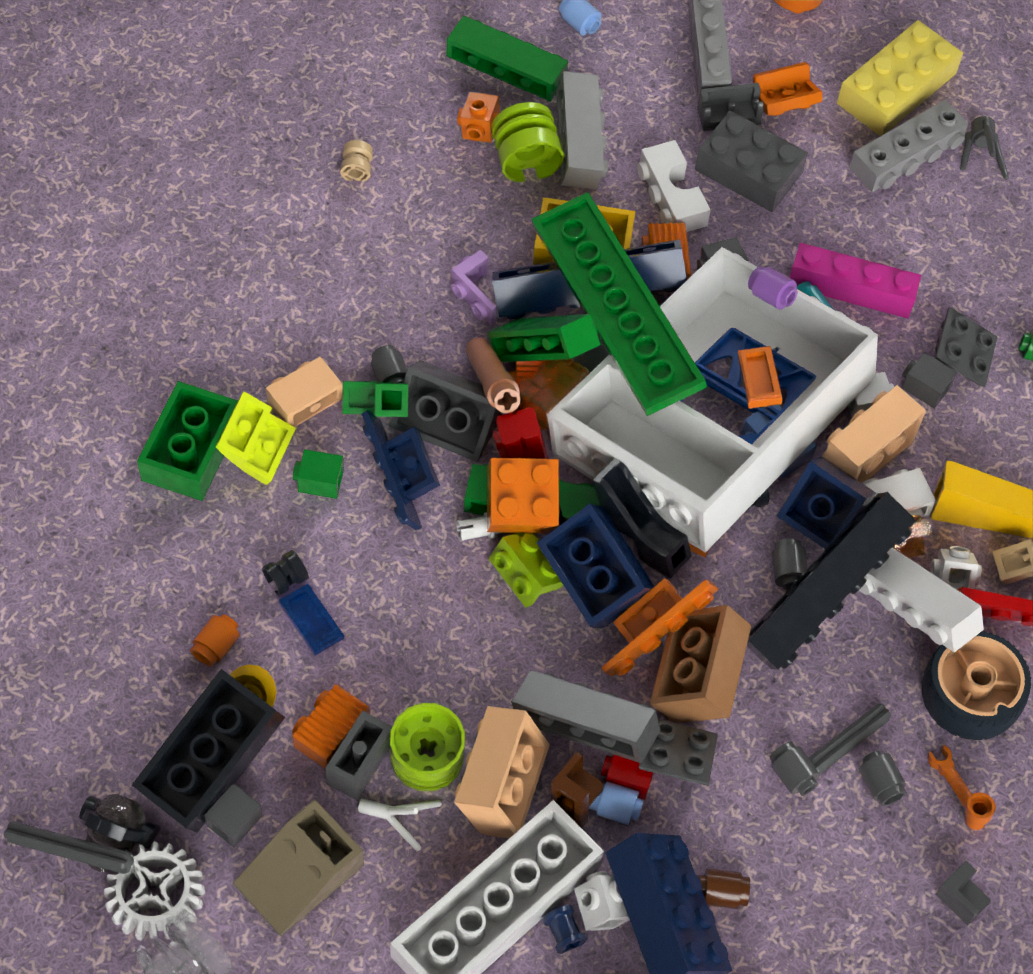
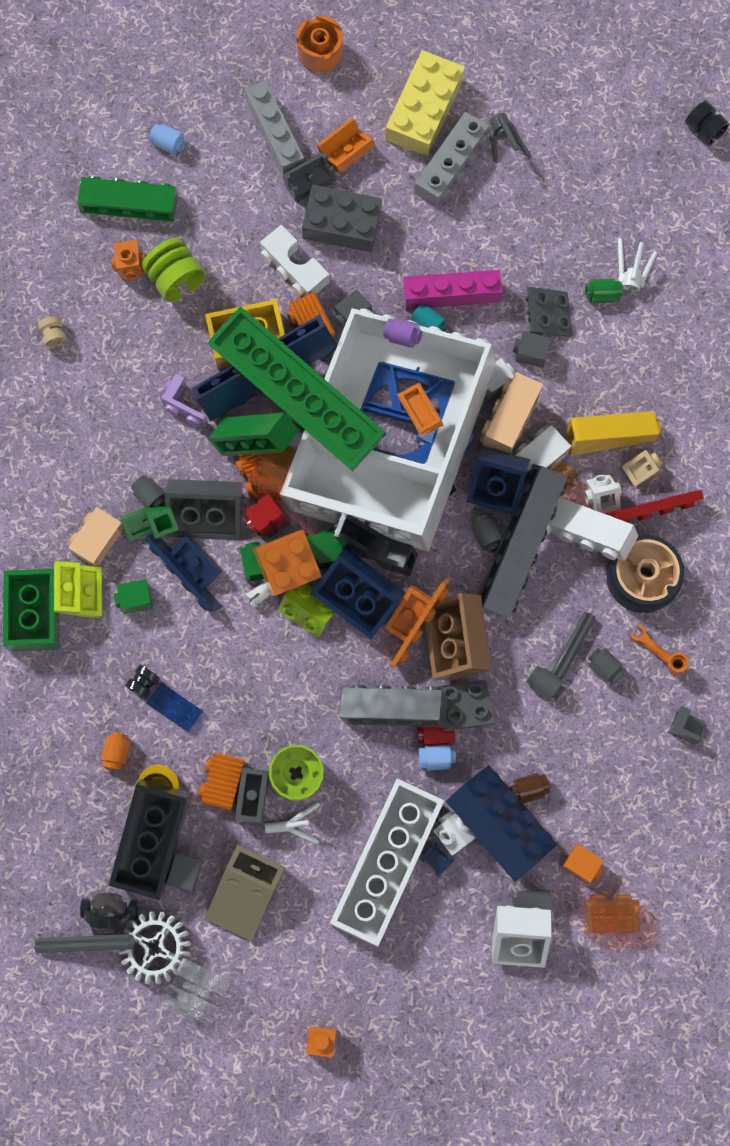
camera: 20 degrees left, 15 degrees up
(497, 384) = (236, 485): nougat piece -> none
(502, 772) = (353, 771): light nougat brick -> none
(575, 789) = (408, 763): reddish brown panel -> none
(581, 130) = (207, 241): light grey brick -> none

